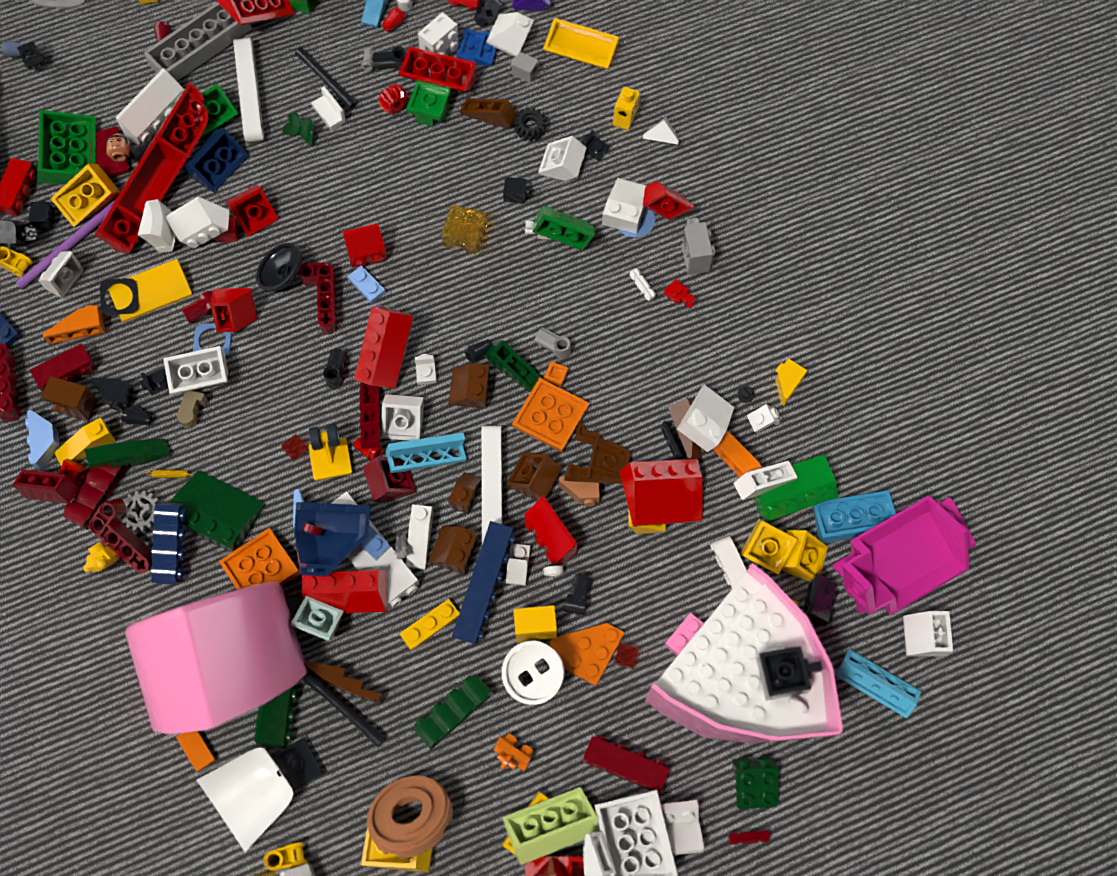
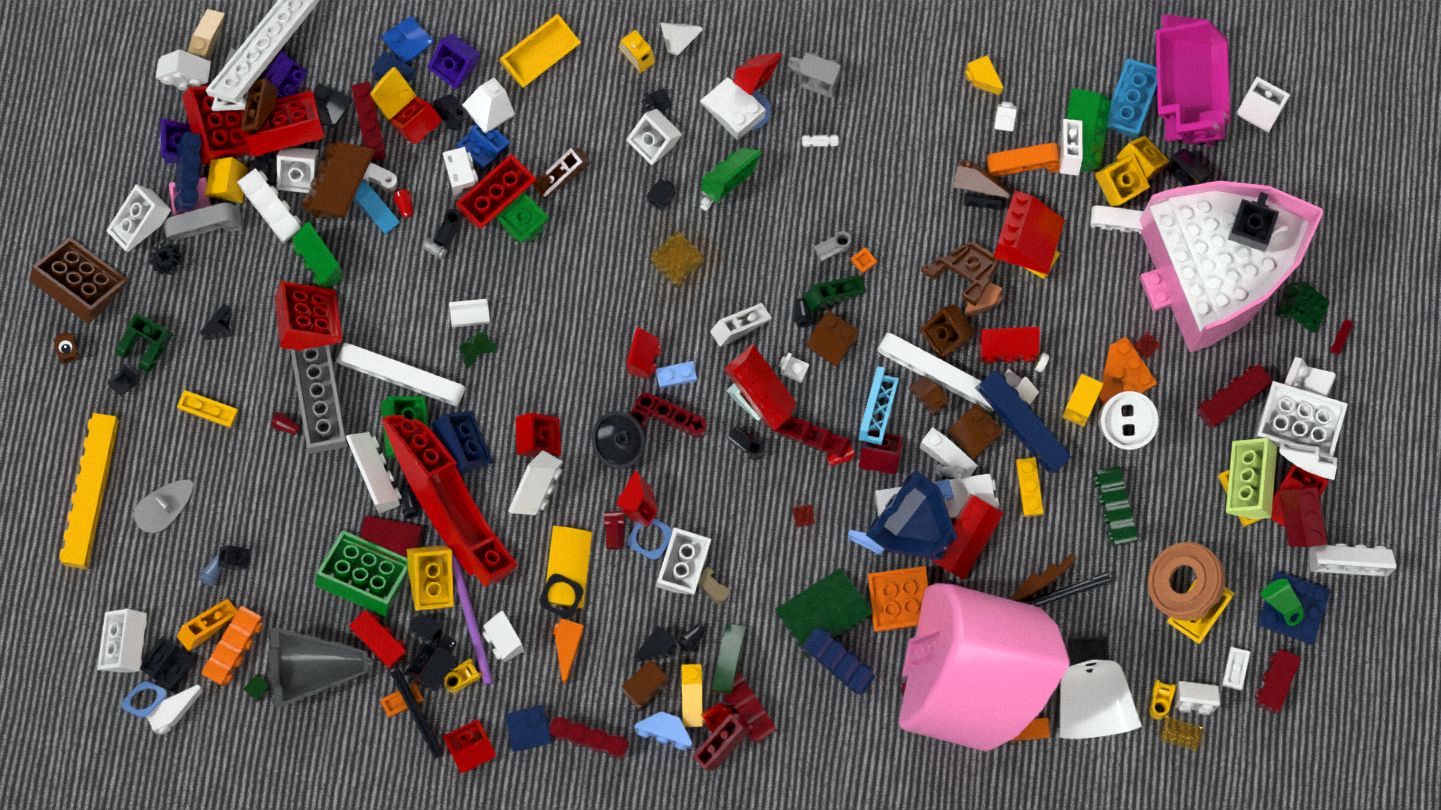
camera: 60 degrees left, 5 degrees up
(65, 366) = (606, 679): dark red brick -> none
(100, 558) = (815, 727): yellow rock -> none
(107, 527) = (836, 694): dark red beam -> none
(118, 147) = (397, 522): nougat head -> none
(133, 508) = (780, 673): light grey gear -> none
(154, 382) = (665, 605): black bracket -> none
(155, 227) = (515, 526): white slope -> none
(169, 473) = (764, 634): yellow piece -> none
(307, 59) = (399, 304): black piece -> none
(312, 529) = (898, 533): dark red tile -> none
(317, 618) = (979, 570): light aqua slope -> none
(328, 453) = (828, 490): yellow plate -> none
(393, 99) = (498, 248): red gear -> none
(402, 417) = (829, 409): white slope -> none
(438, 307) = (739, 324): none -> white slope
(510, 755) = (1178, 480): orange hips -> none
(524, 67) = (534, 114): light grey brick -> none
(530, 115) = (601, 133): black tyre -> none
(550, 414) = (899, 286): orange plate -> none
(576, 600) = (1078, 358): black piece -> none
(679, 293) = (846, 116): red plate -> none
(706, 419) = (988, 160): white slope -> none
(745, 394) = (974, 118): black piece -> none
(876, 684) = (1280, 168): medium azure fence -> none

